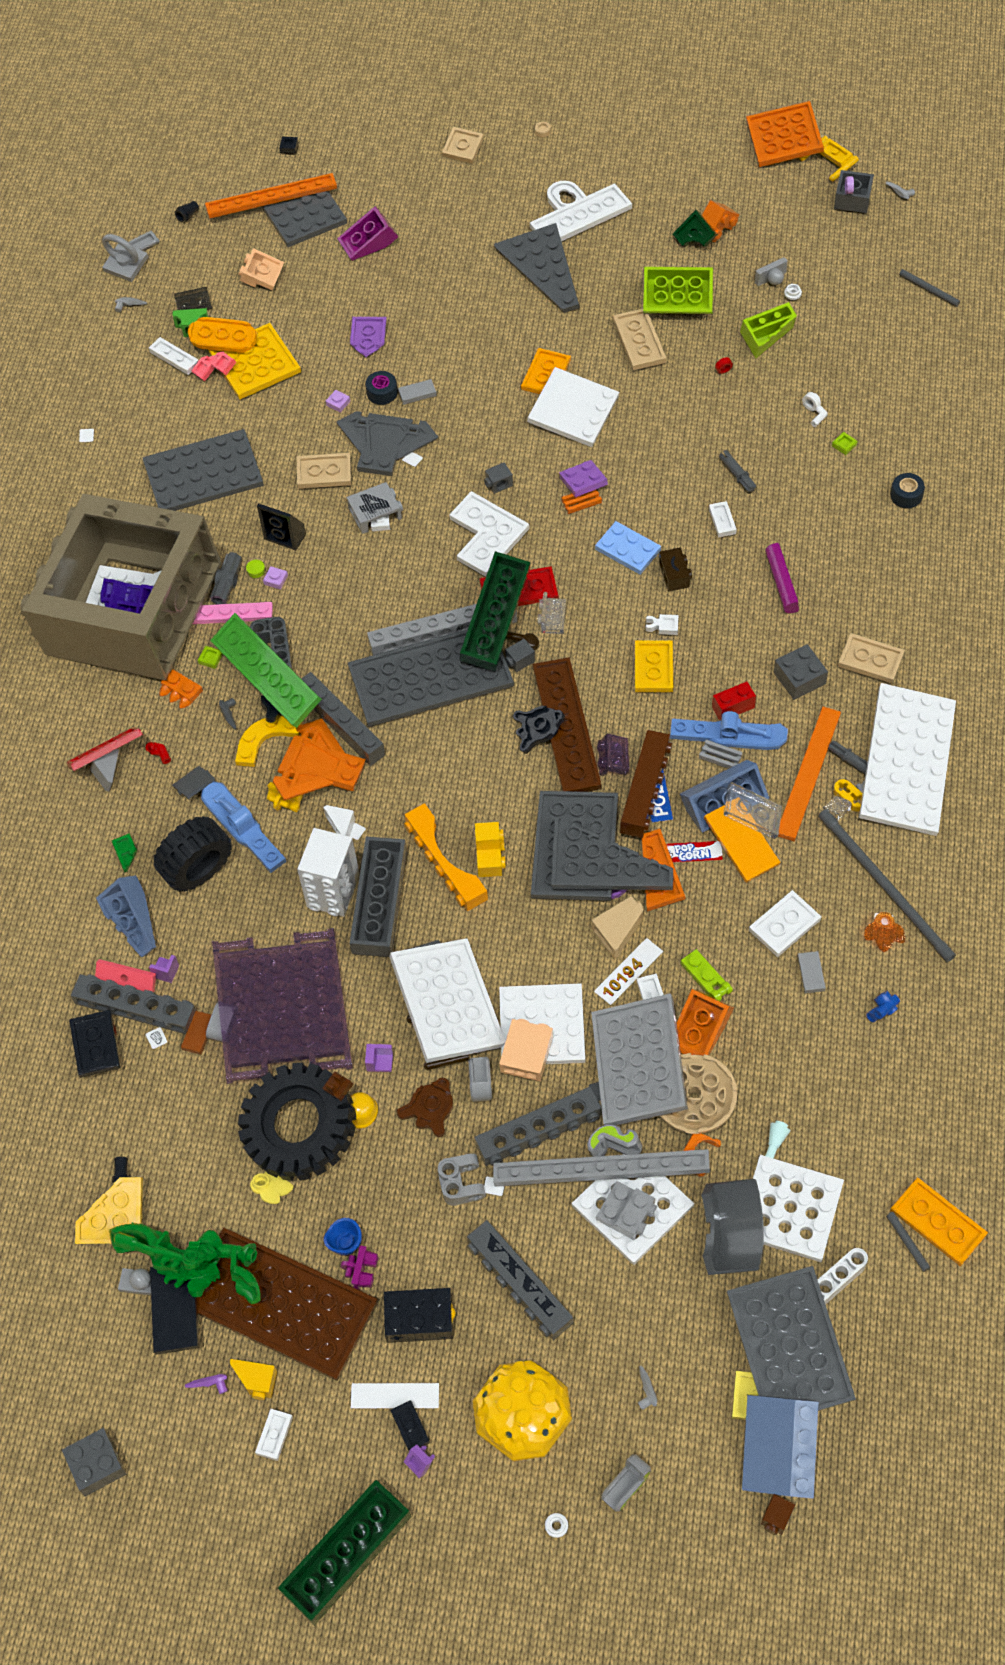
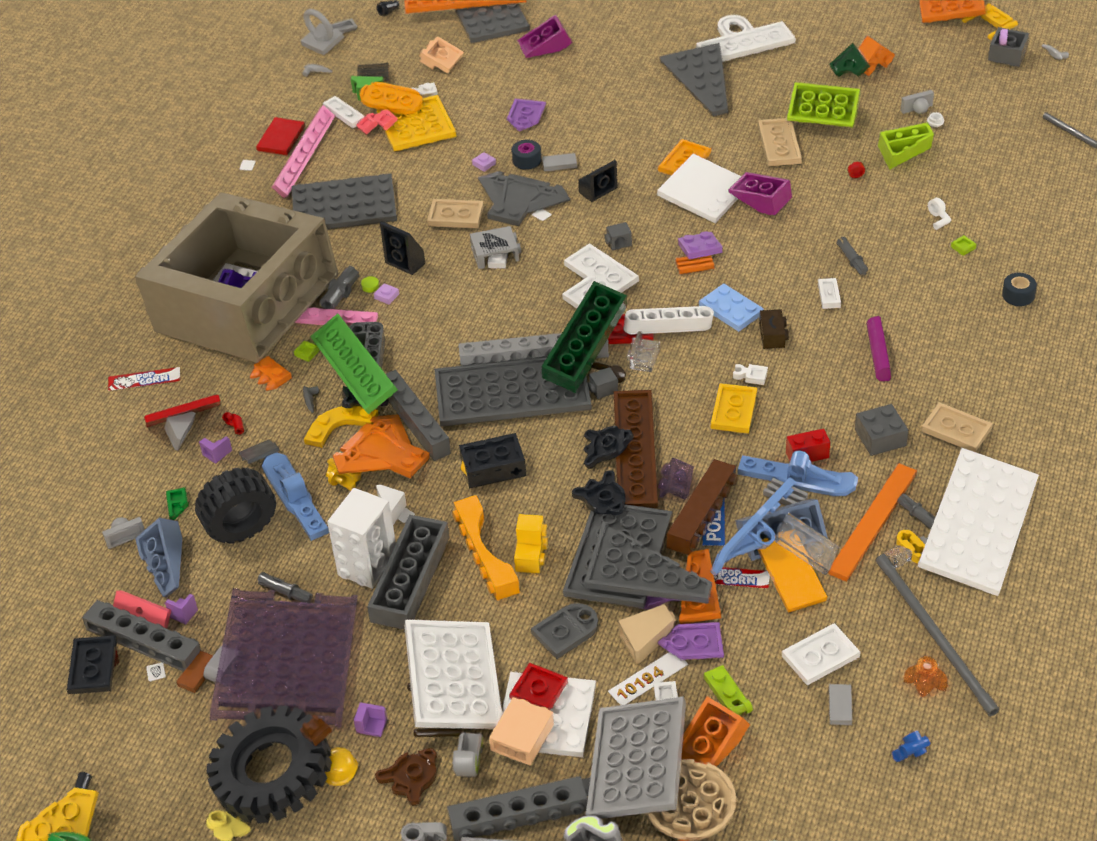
camera: 10 degrees right, 15 degrees down
(50, 712) = (143, 378): none -> sticker
(81, 892) = (122, 531): none -> light grey tile
(113, 394) = (280, 136): none -> red tile
(144, 412) = (303, 151): none -> bright pink plate
(149, 785) = (216, 450): none -> medium lavender panel
(255, 317) = (427, 90): none -> white plate
(256, 929) = (280, 586): none -> dark grey axle
(431, 761) = (492, 460): none -> black piece
(464, 413) = (599, 182): none -> black slope
(531, 1001) = (539, 686): none -> red tile
(541, 933) = (566, 629): none -> dark grey tile
(547, 786) = (602, 496): none -> black tile
(570, 574) = (668, 320): none -> white beam
(634, 406) = (762, 192): none -> magenta slope
(665, 927) = (694, 641): none -> medium lavender tile
(698, 813) = (748, 537): none -> medium blue piece

